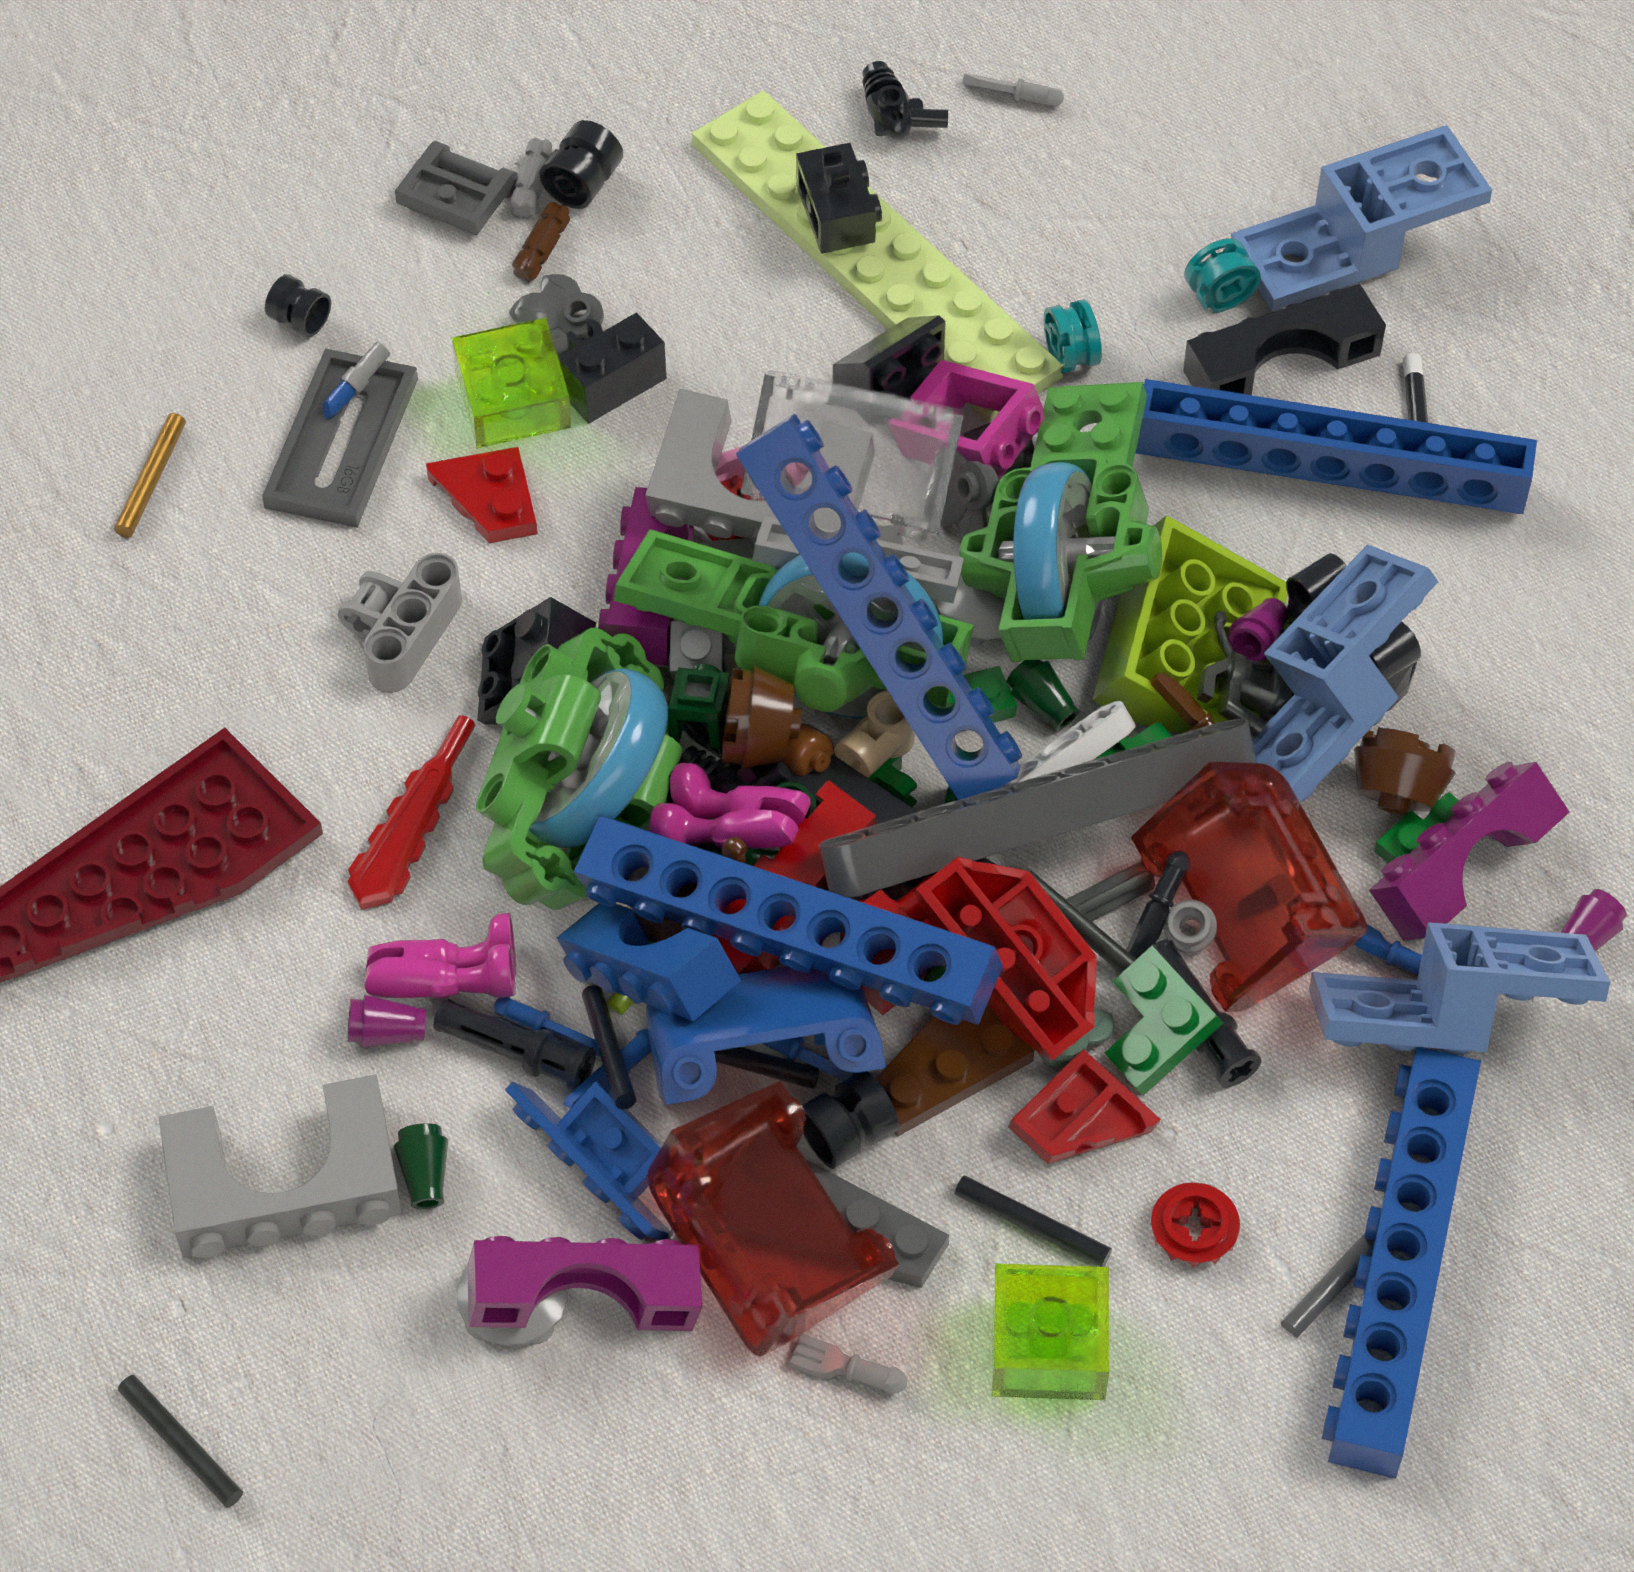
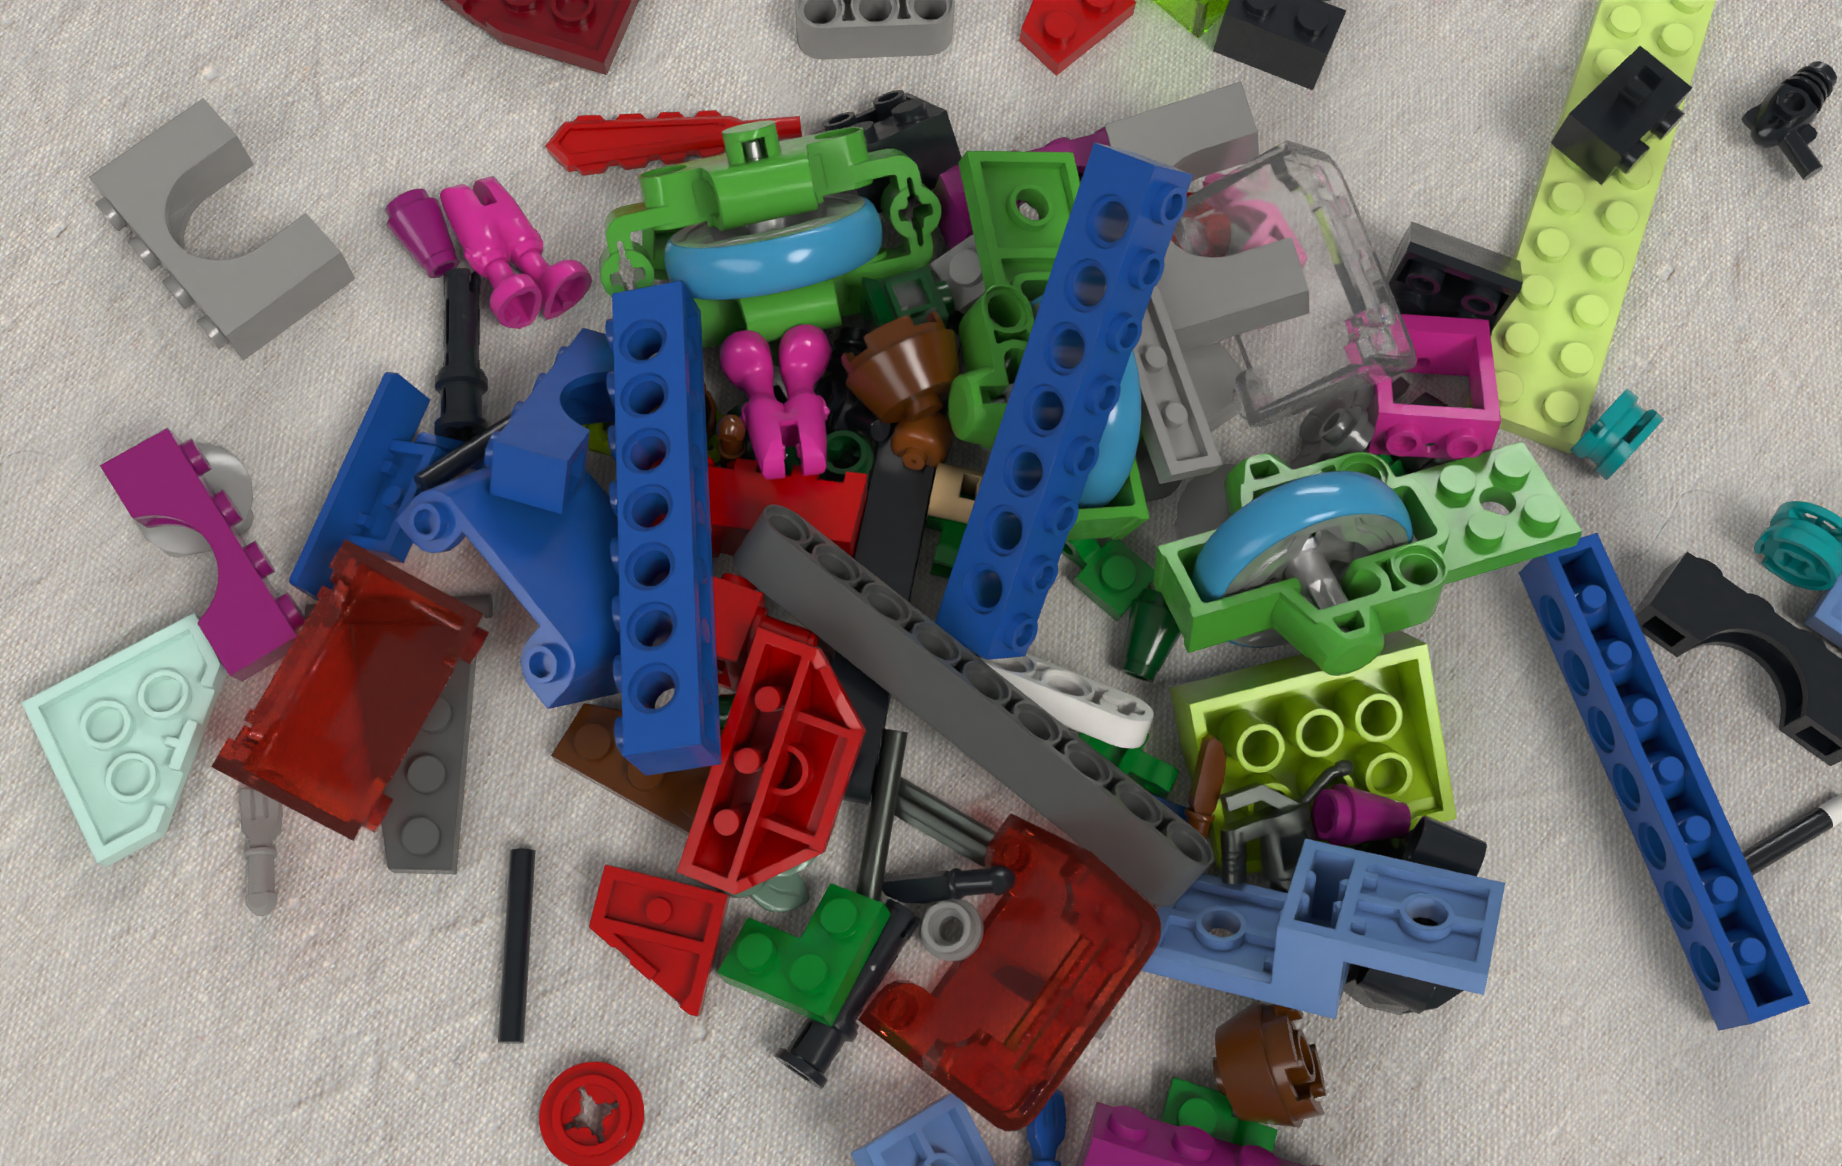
camera: 55 degrees right, 15 degrees up
(423, 1159) = (287, 347): dark green cone -> none
(537, 1020) = (501, 369): blue piece -> none
(695, 1418) = (129, 735): none -> light aqua plate
(853, 1115) = (506, 703): black wheel -> none
(1050, 1331) = (367, 1031): clear neon green brick -> none

